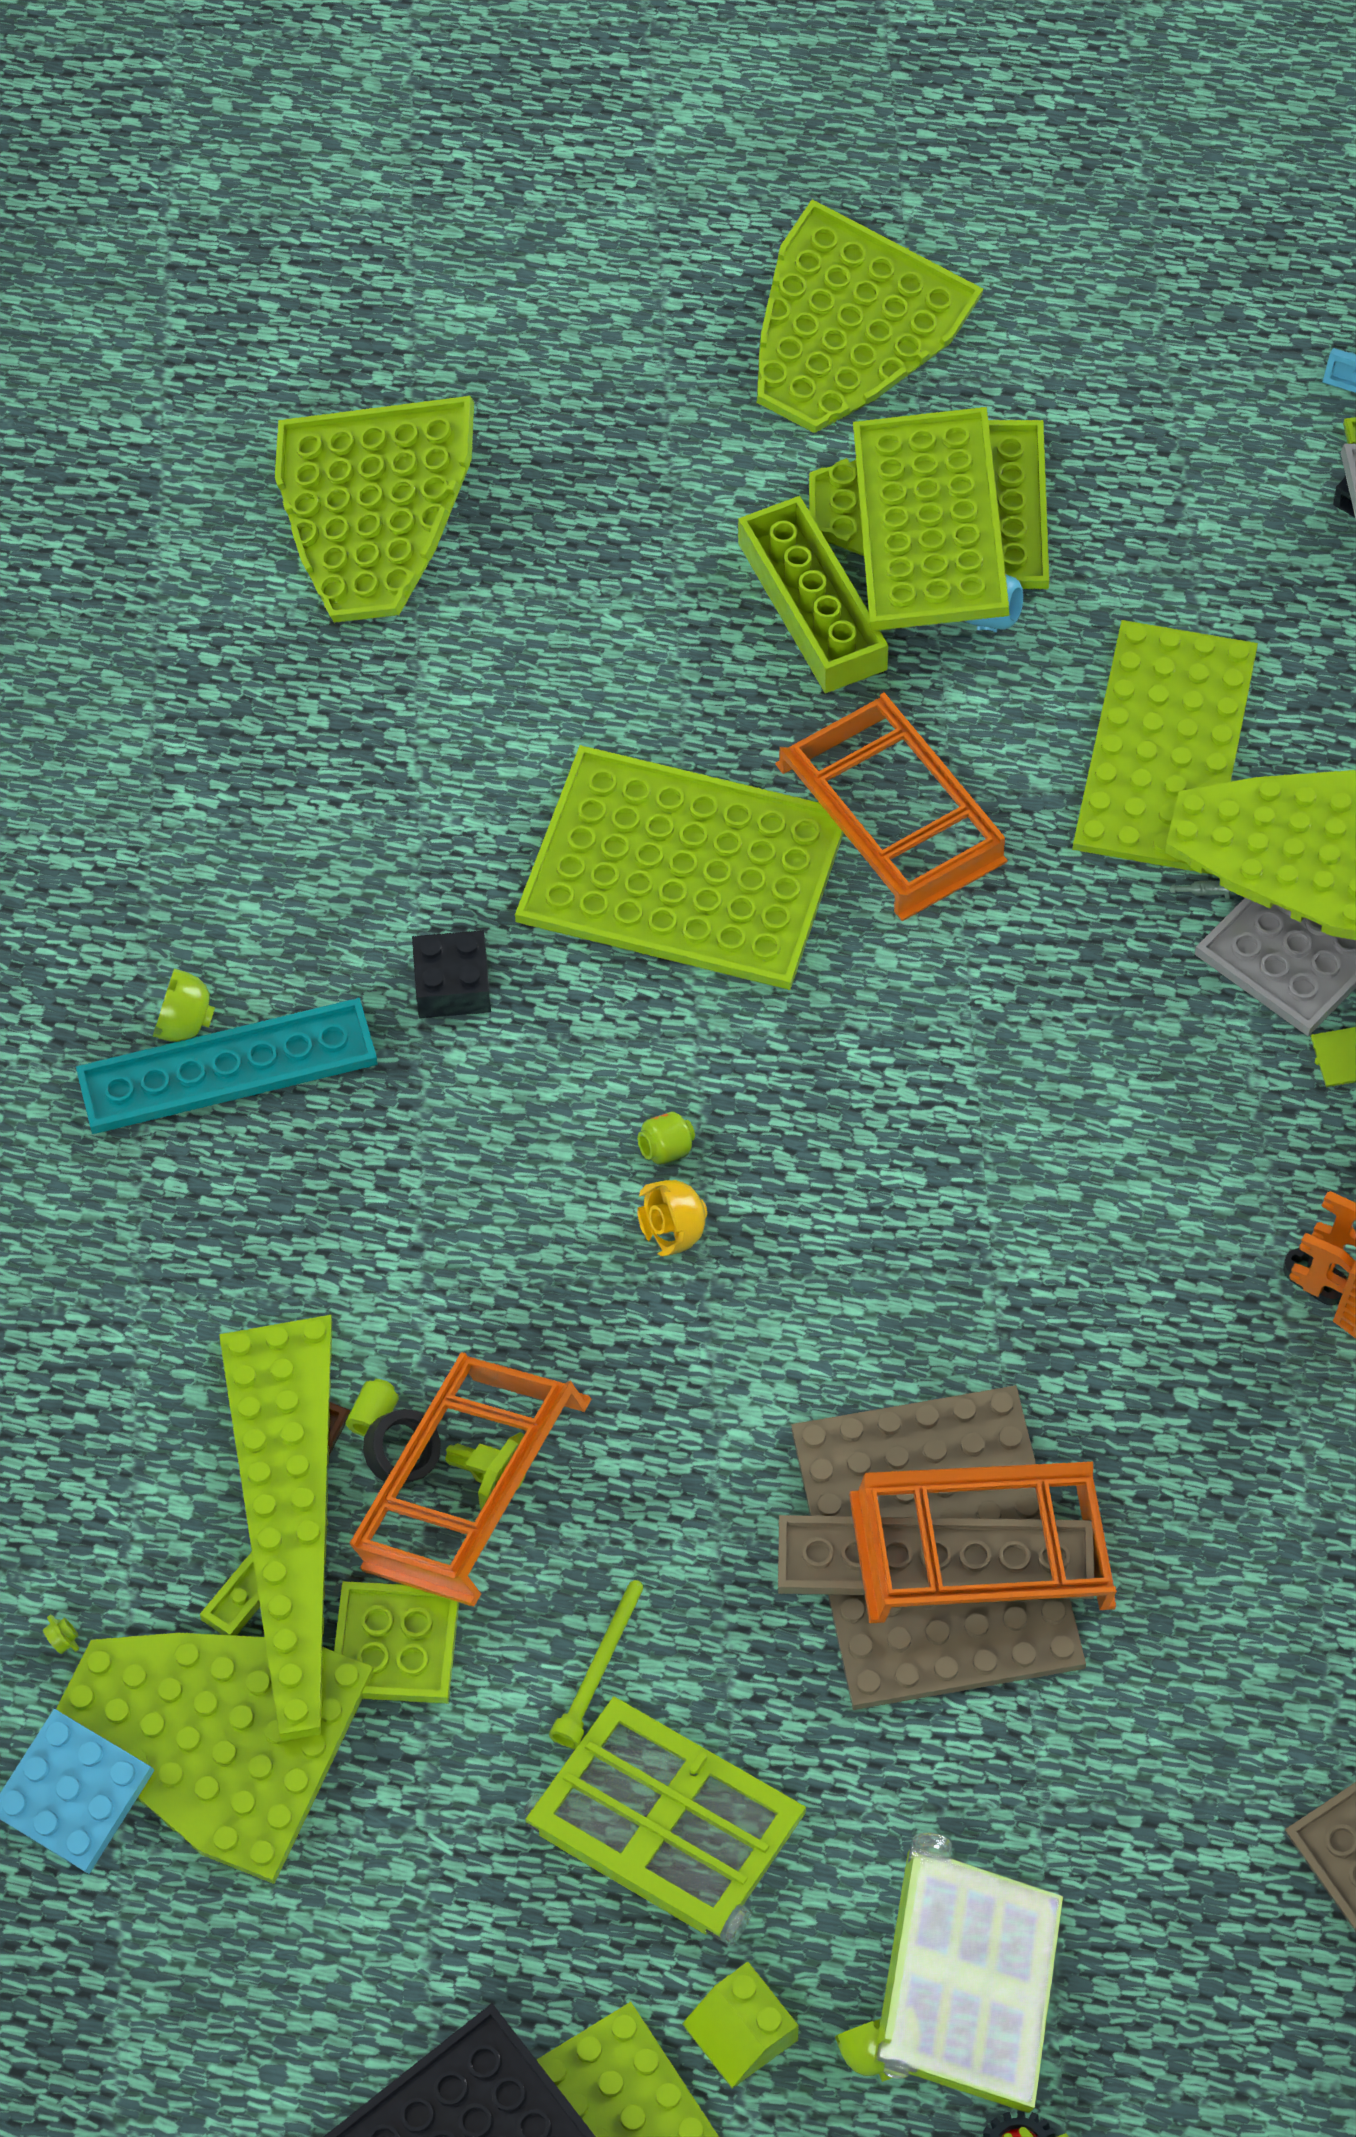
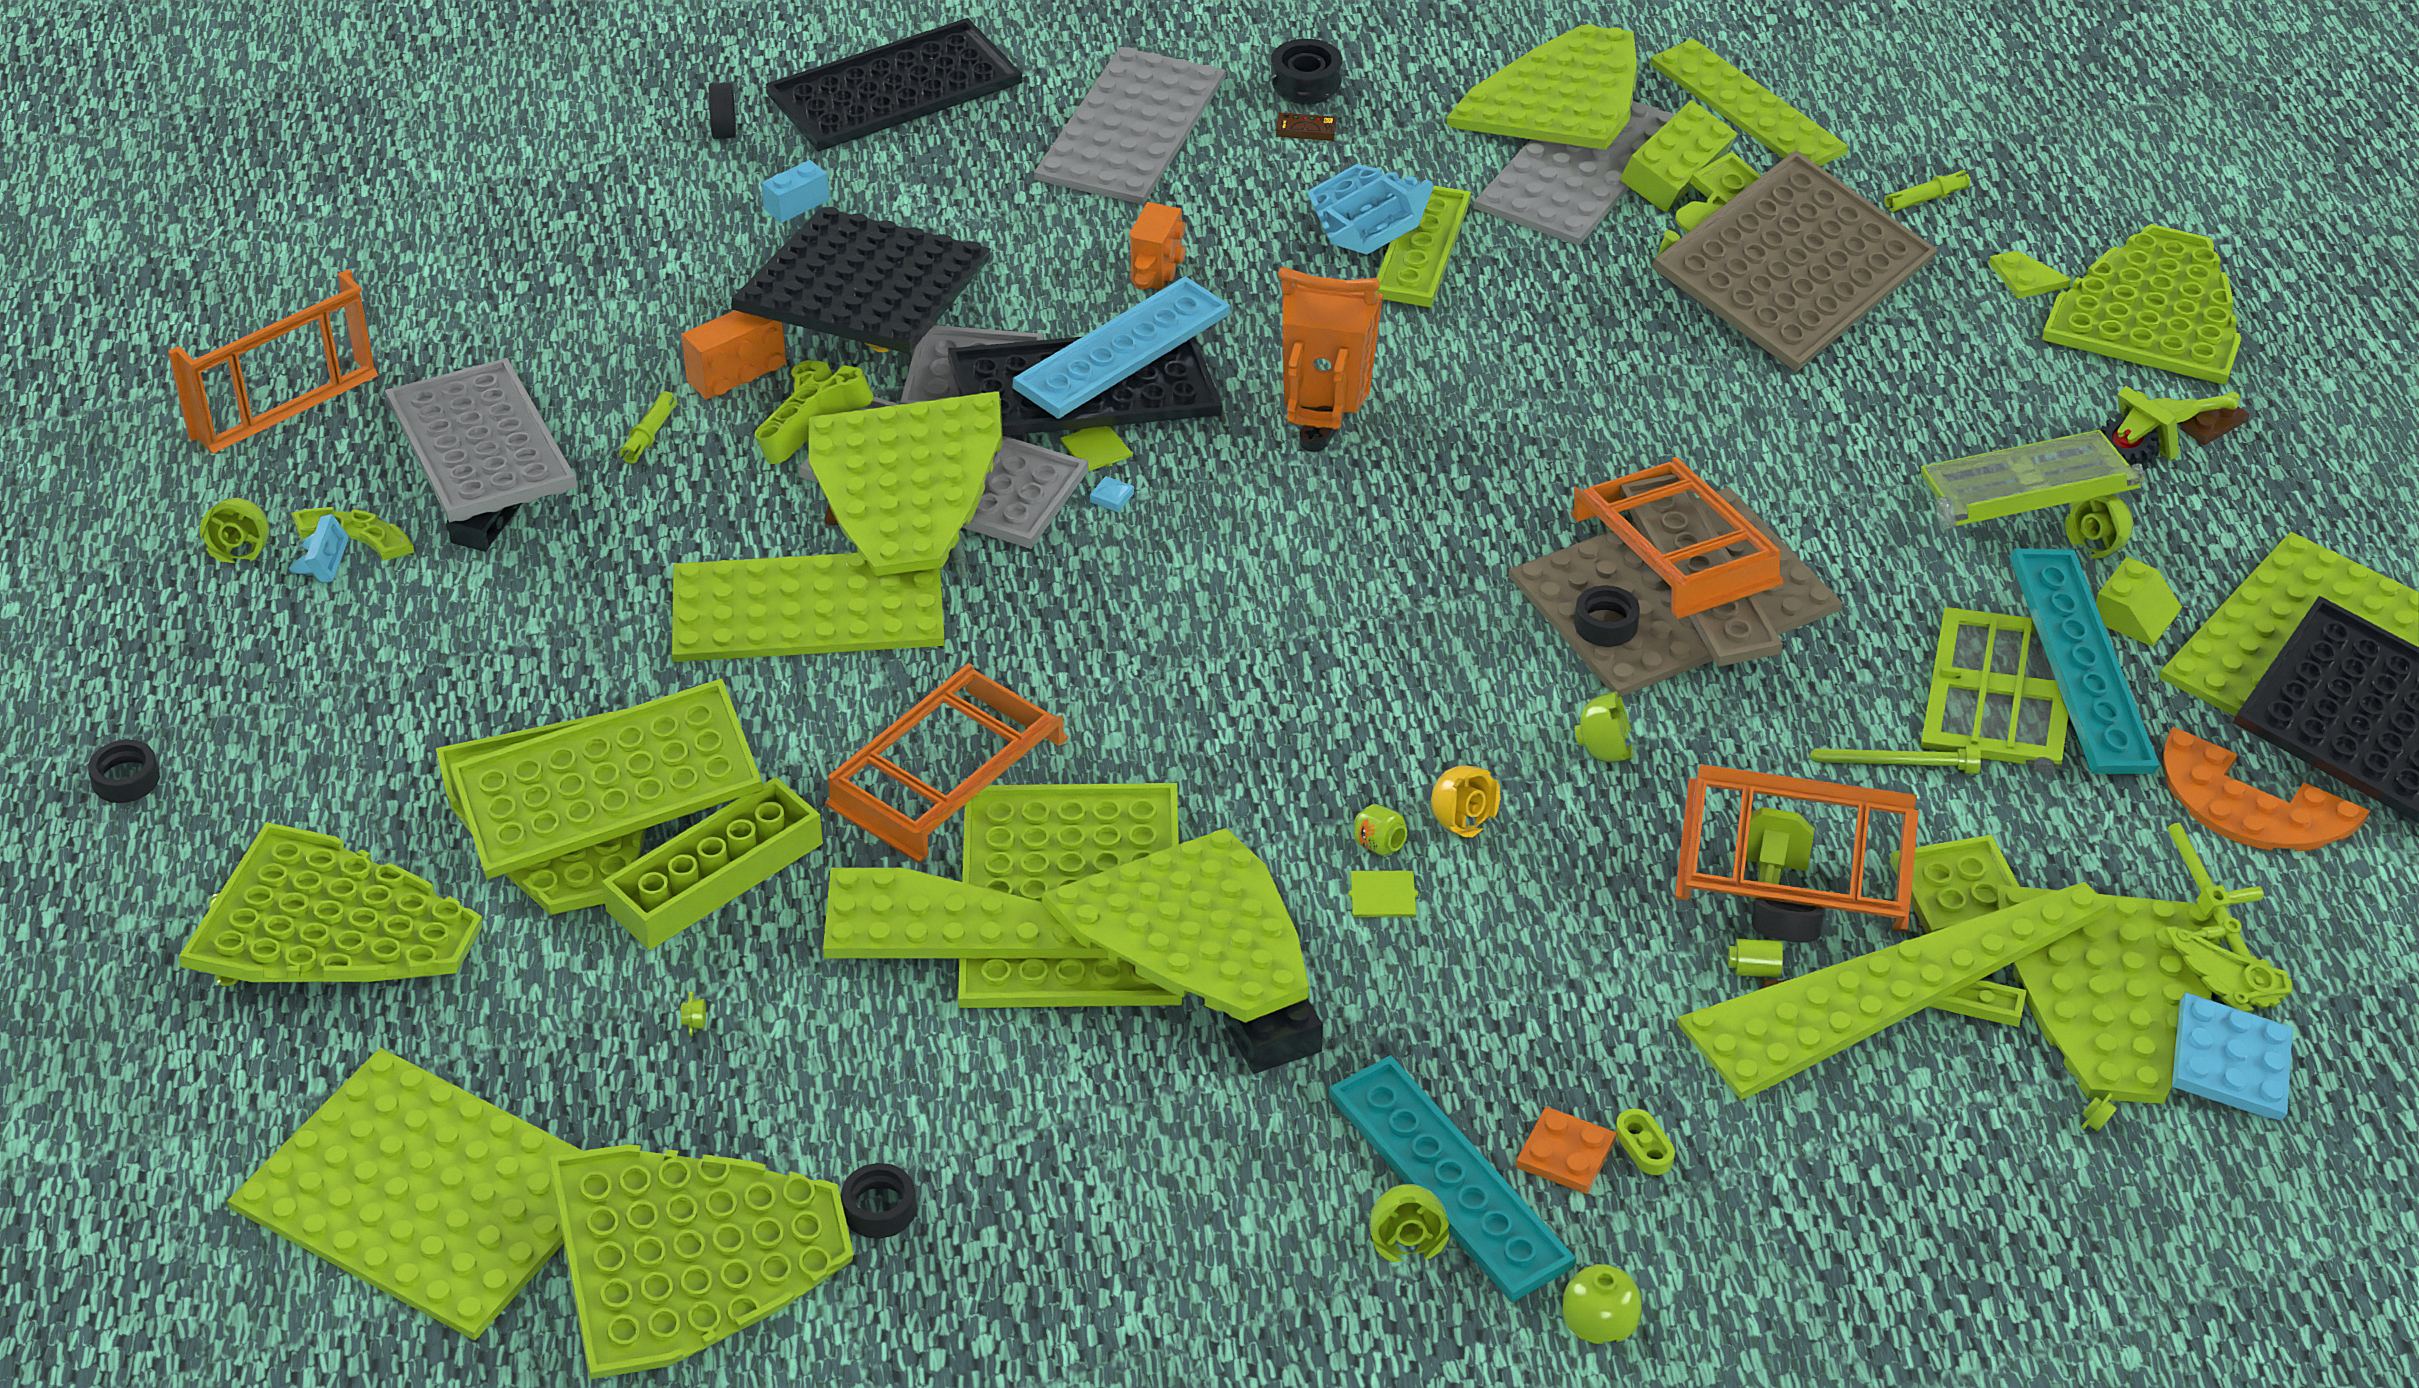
camera: 110 degrees left, 15 degrees down
(39, 1136) = (1602, 1304): none -> lime cylinder
(175, 1834) = (2235, 974): none -> lime bar
(197, 1230) = (1646, 1144): none -> lime plate
(220, 1171) = (1566, 1150): none -> orange plate
(384, 665) = (884, 1223): none -> black tyre
(396, 1986) = (2245, 814): none -> orange plate
(533, 352) = (416, 1192): none -> lime plate
(575, 927) = (1193, 923): none -> lime wing
(592, 1125) = (1383, 894): none -> lime piece
(641, 555) = (693, 1013): none -> lime plate
(651, 1894) = (2084, 662): none -> teal plate
(681, 735) = (937, 917): none -> lime wing
(718, 1378) = (1605, 728): none -> lime cylinder
(886, 1407) = (1601, 632): none -> black tyre
(1095, 224) = (128, 788): none -> black tyre
(1261, 1047) = (1111, 494): none -> medium azure tile

